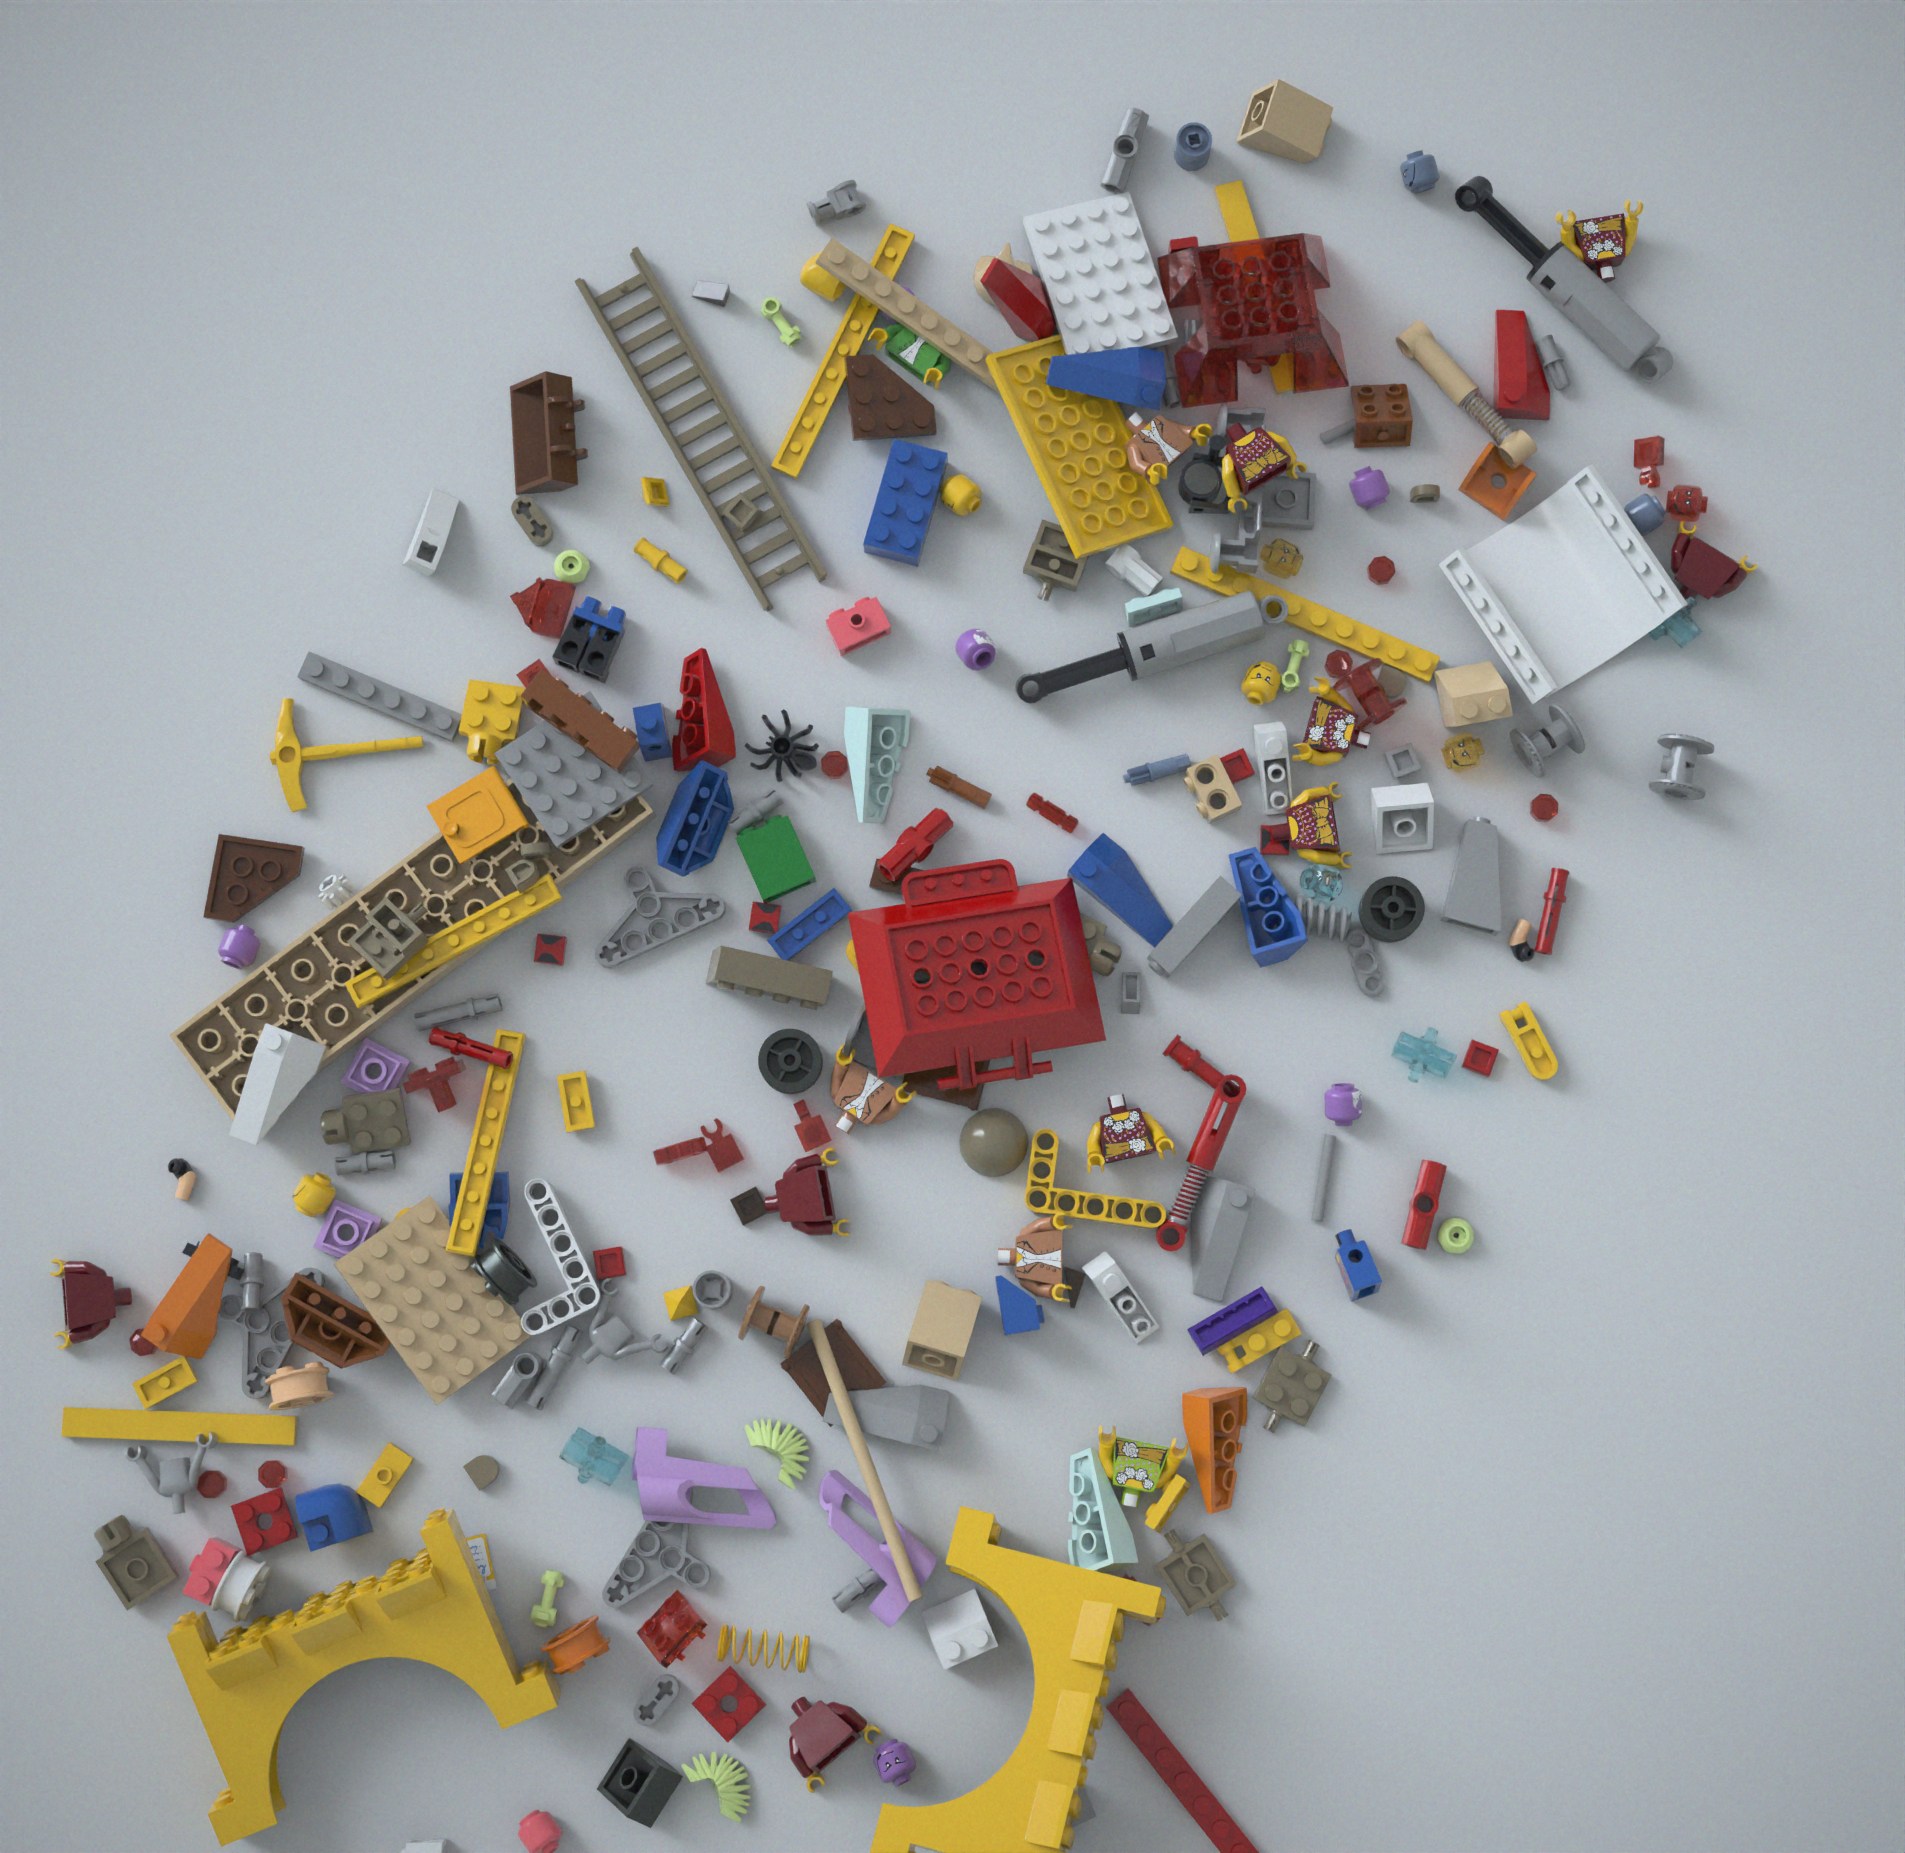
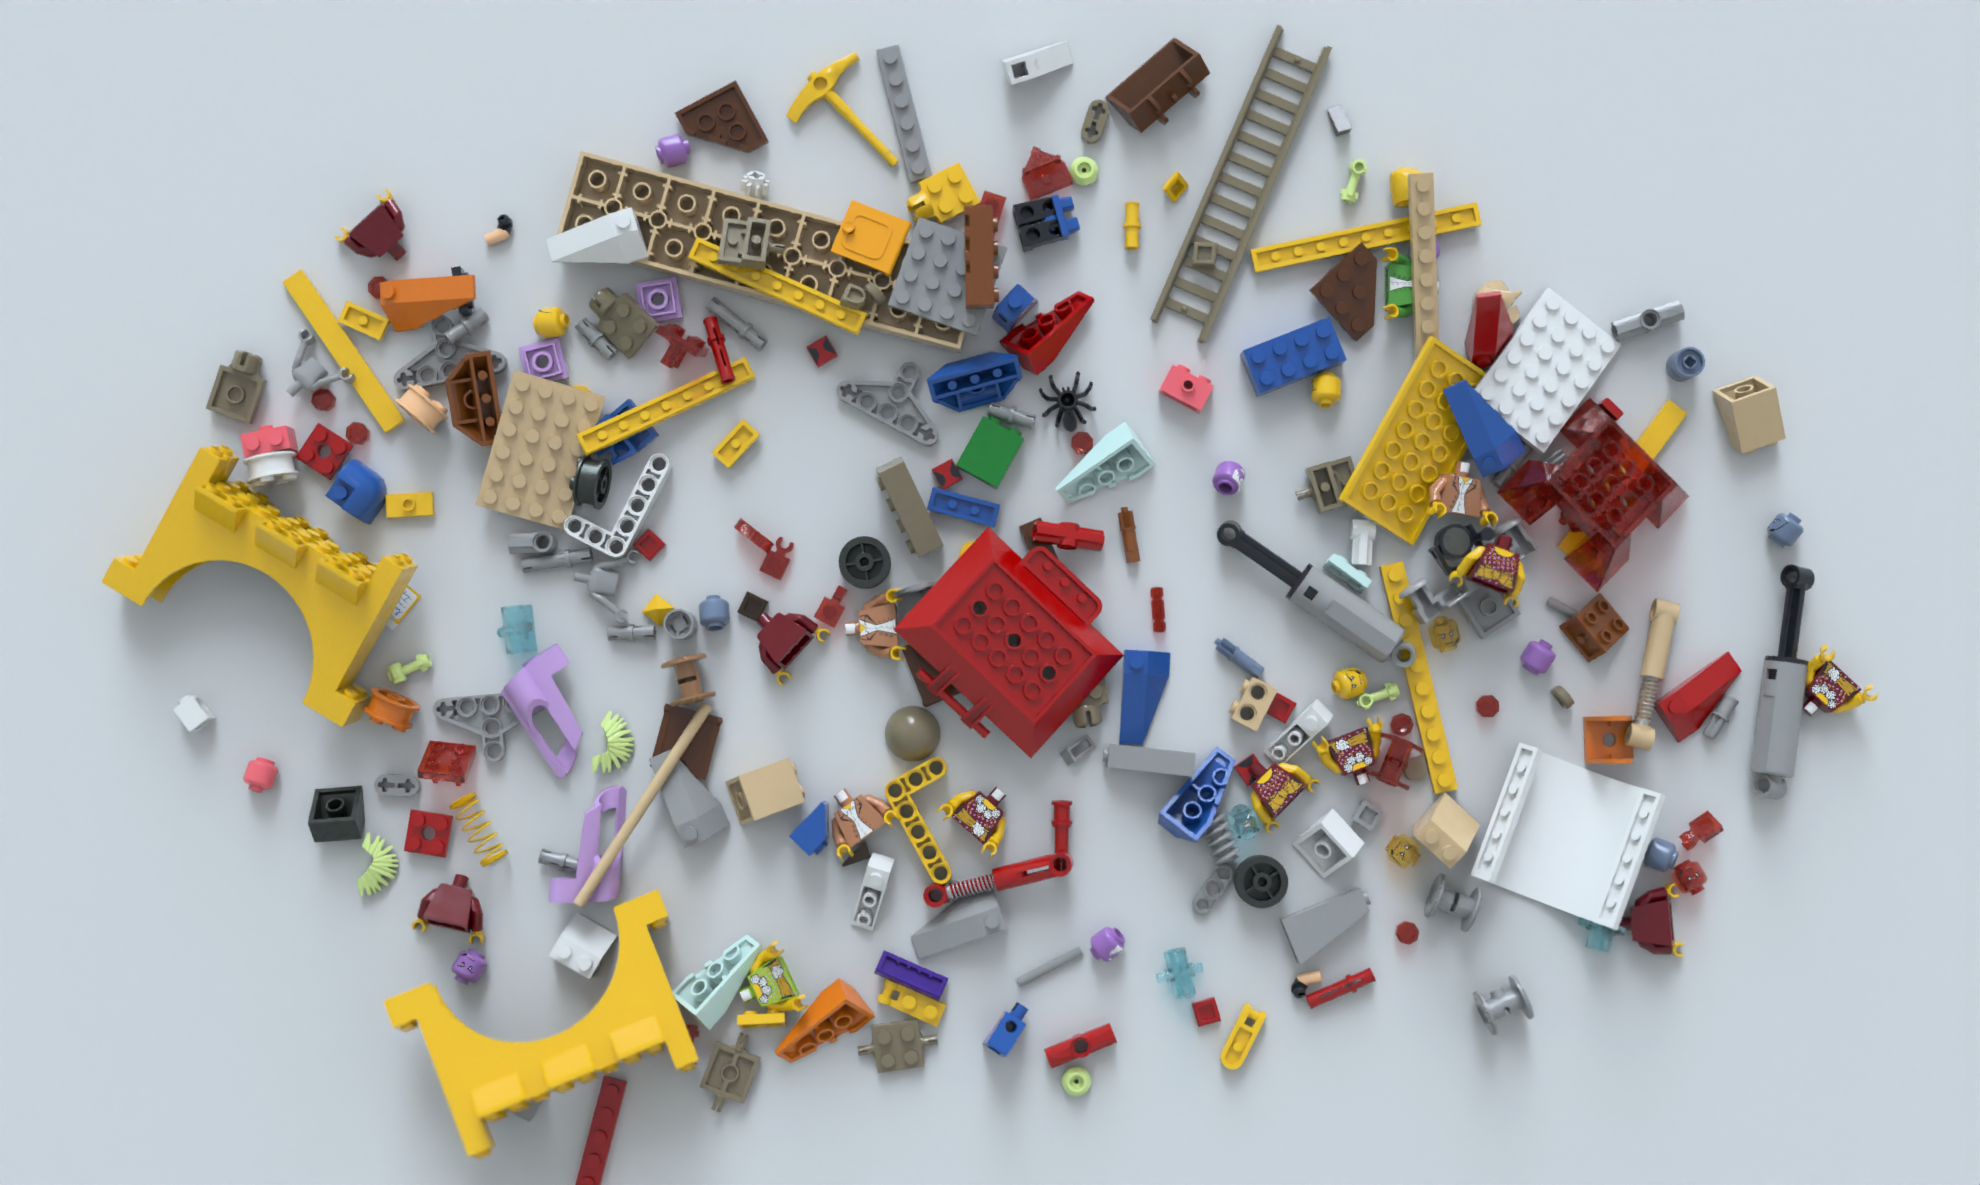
camera: 55 degrees right, 5 degrees up
(482, 1470) = (458, 564): dark tan tile -> none
(727, 1248) = (714, 613): none -> sand blue head
(837, 203) = (1464, 157): light grey connector -> none

